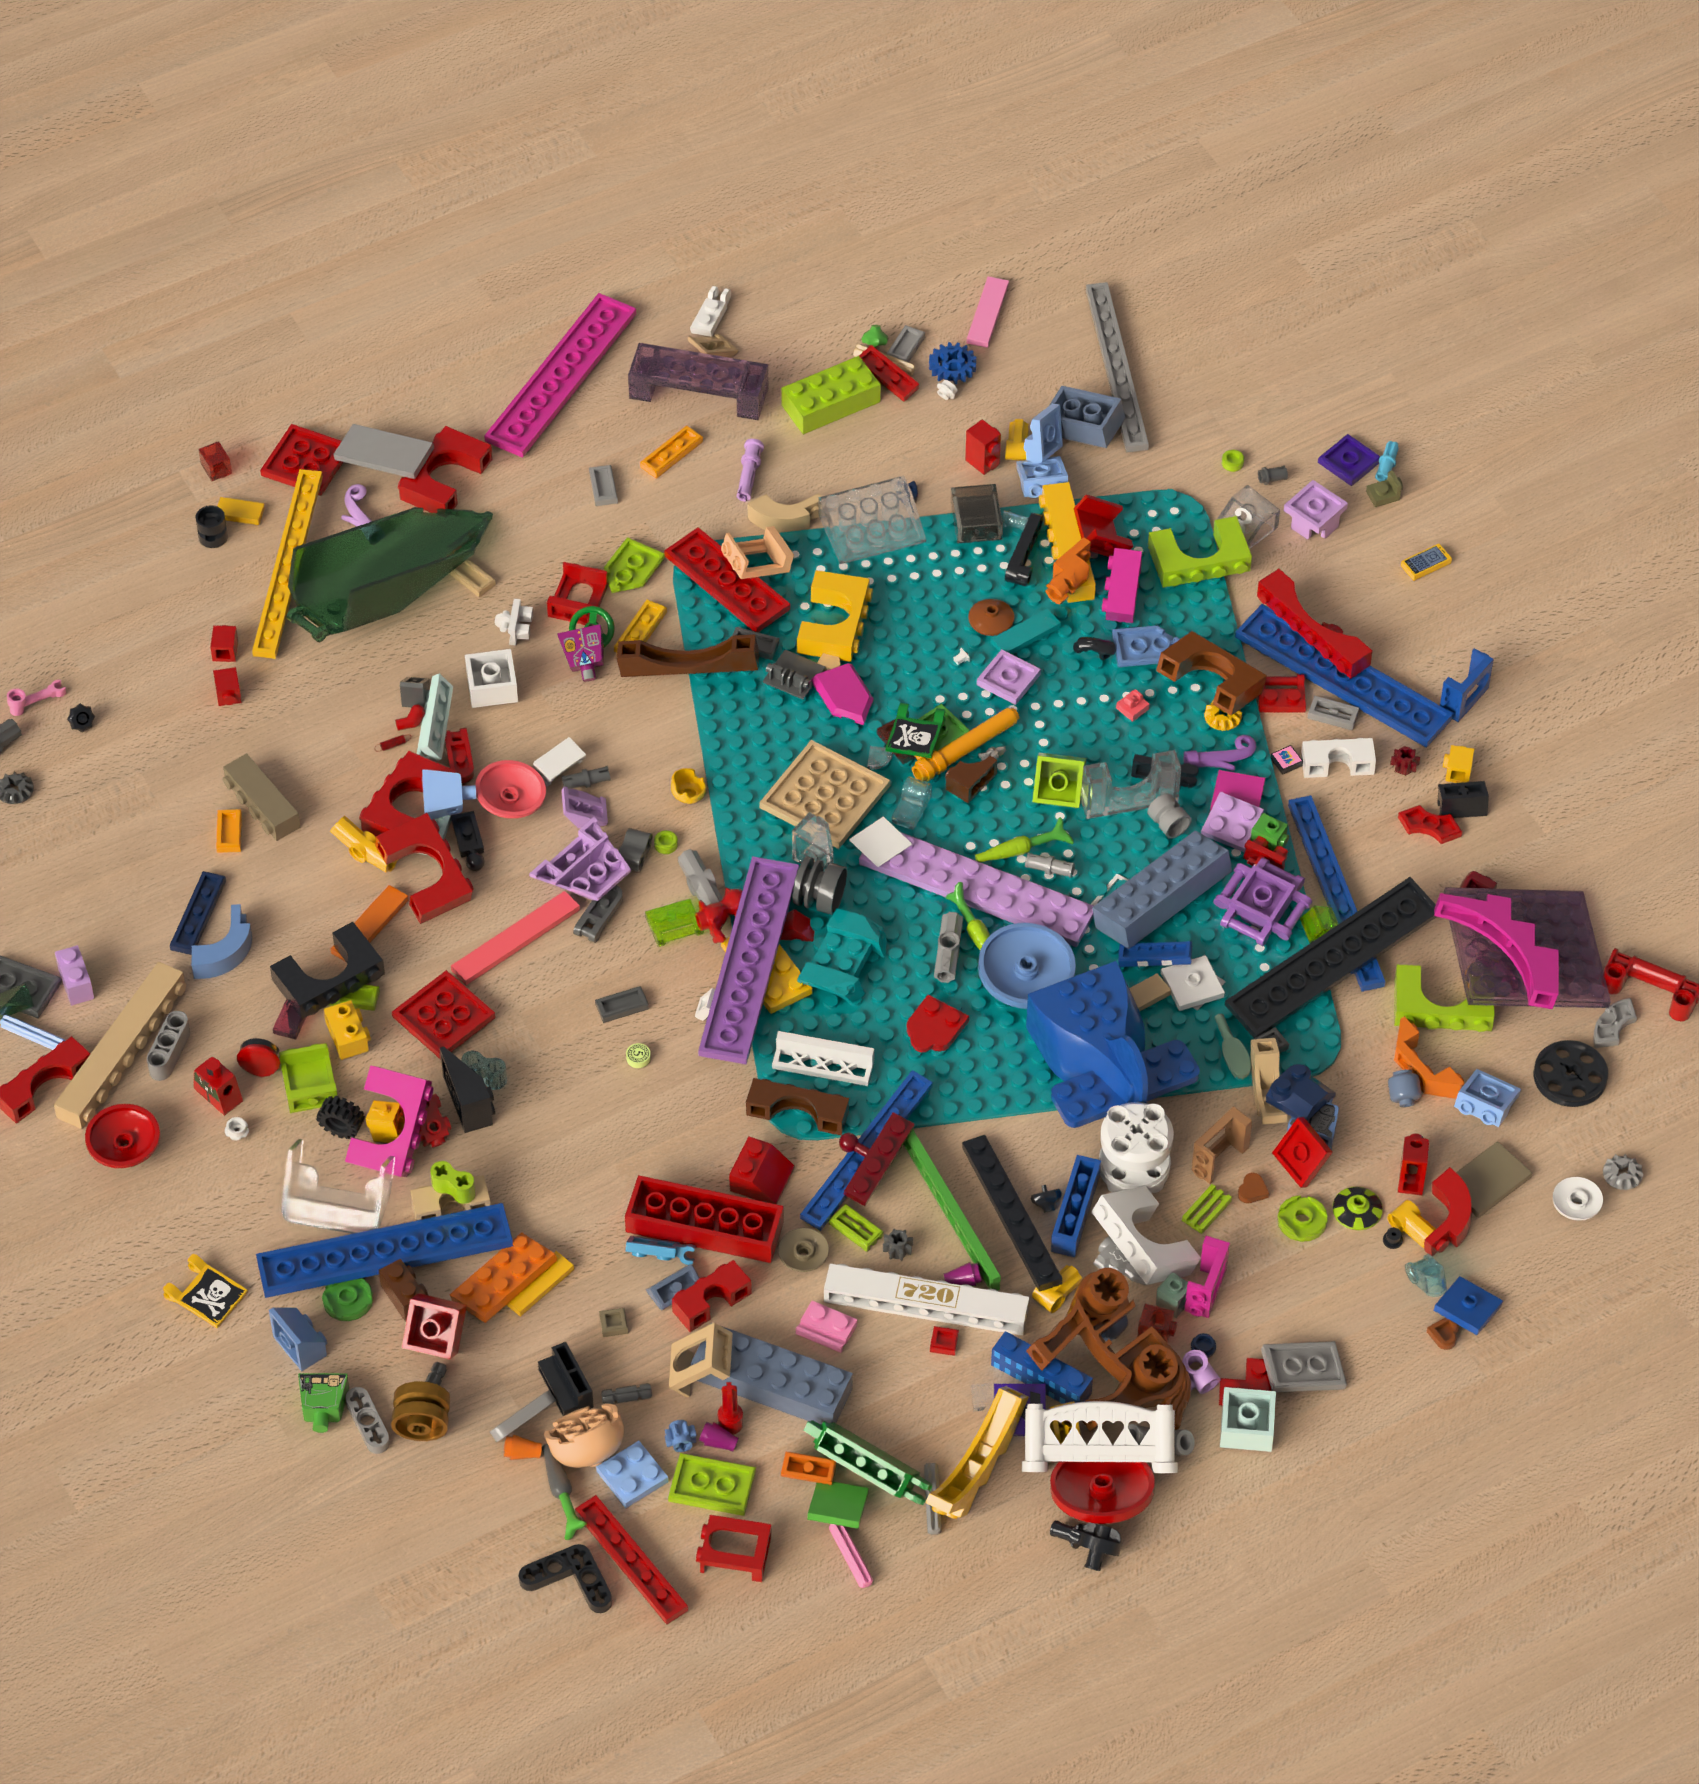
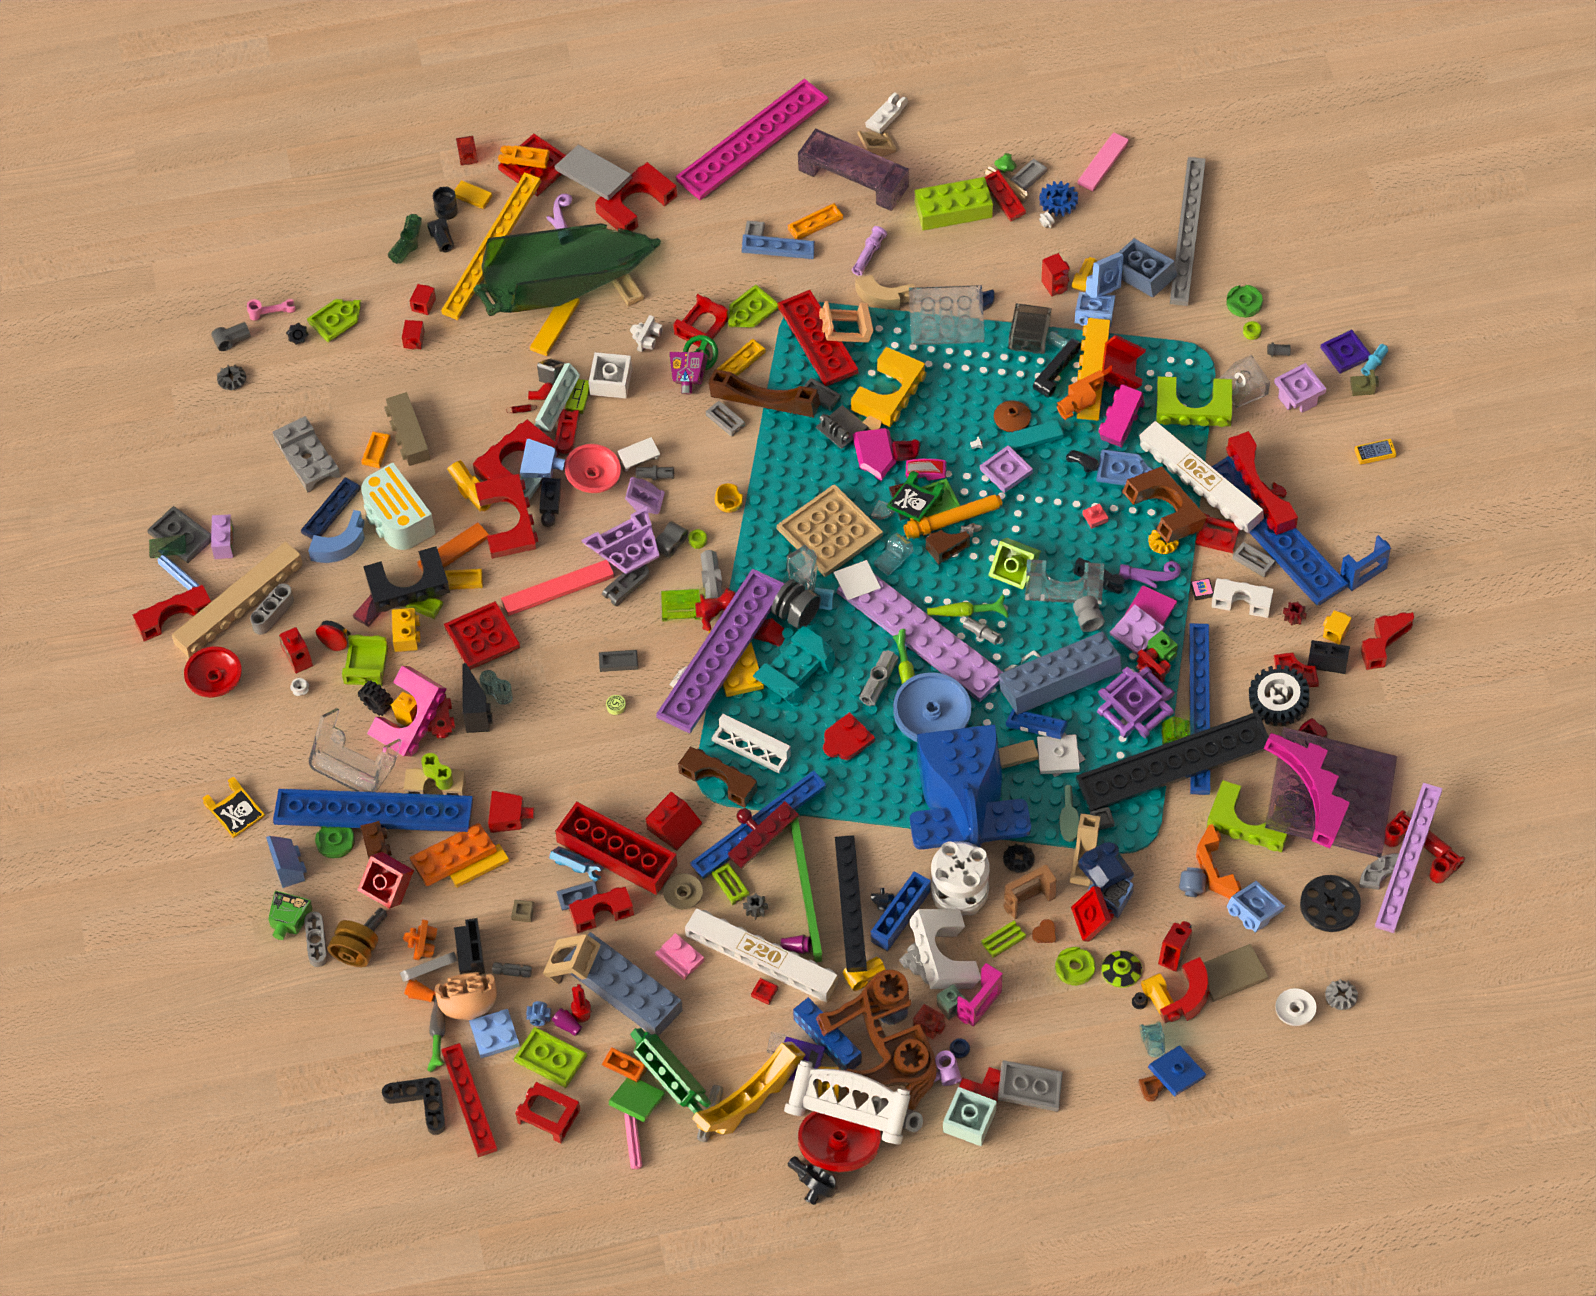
camera: 20 degrees right, 5 degrees up
(120, 690) = (335, 318): none -> lime tile
(128, 840) = (300, 439): none -> light grey piece
(180, 580) = (408, 240): none -> clear green piece
(216, 561) = (440, 231): none -> black piece
(285, 891) = (396, 509): none -> light aqua brick
(290, 451) = (524, 156): none -> light orange hinge
(397, 641) = (553, 327): none -> yellow tile
(399, 954) = (464, 578): none -> yellow tile
(459, 712) = (578, 396): none -> lime tile
(498, 1387) = (424, 932): none -> orange hips
(553, 1211) = (507, 812): none -> red torso
(638, 488) = (778, 246): none -> medium blue tile
(645, 700) = (740, 423): none -> light grey tile
(853, 871) = (826, 598): none -> medium azure tile
(882, 682) = (906, 450): none -> dark red plate
(917, 696) = (928, 468): none -> slope
(1192, 1120) = (1018, 865): none -> black gear
(1211, 430) = (1244, 301): none -> bright green tile
(1241, 633) = (1201, 477): none -> white brick
(1424, 841) = (1285, 683): none -> wheel
(1517, 756) = (1387, 631): none -> red arch
(1643, 999) = (1408, 858): none -> lavender plate

